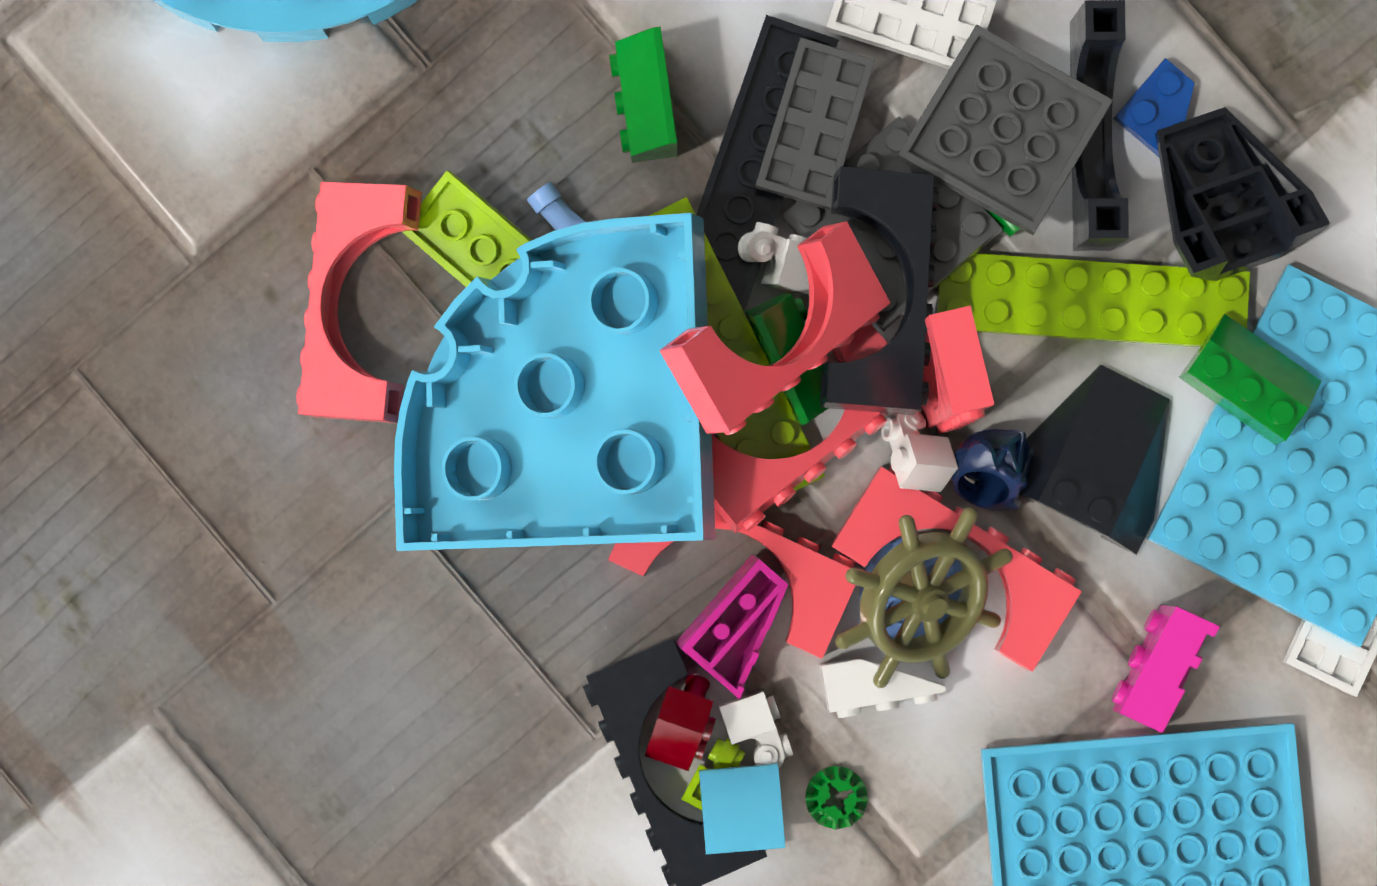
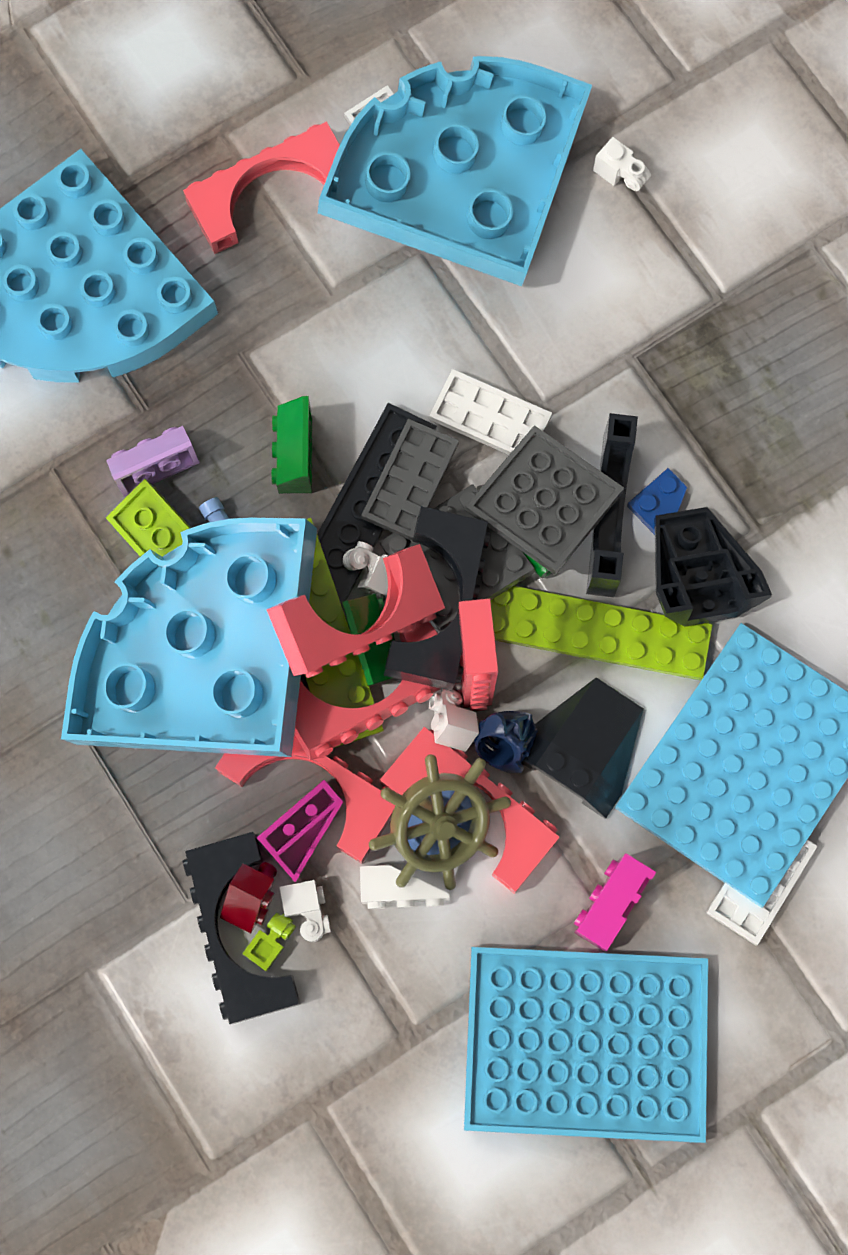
camera: 10 degrees right, 10 degrees down
(347, 224) = (68, 508): coral arch -> none
(452, 139) = (152, 460): none -> lavender slope
(742, 809) = (284, 964): medium azure slope -> none
(818, 792) = (352, 982): green gear -> none
(1251, 380) = (701, 699): green slope -> none

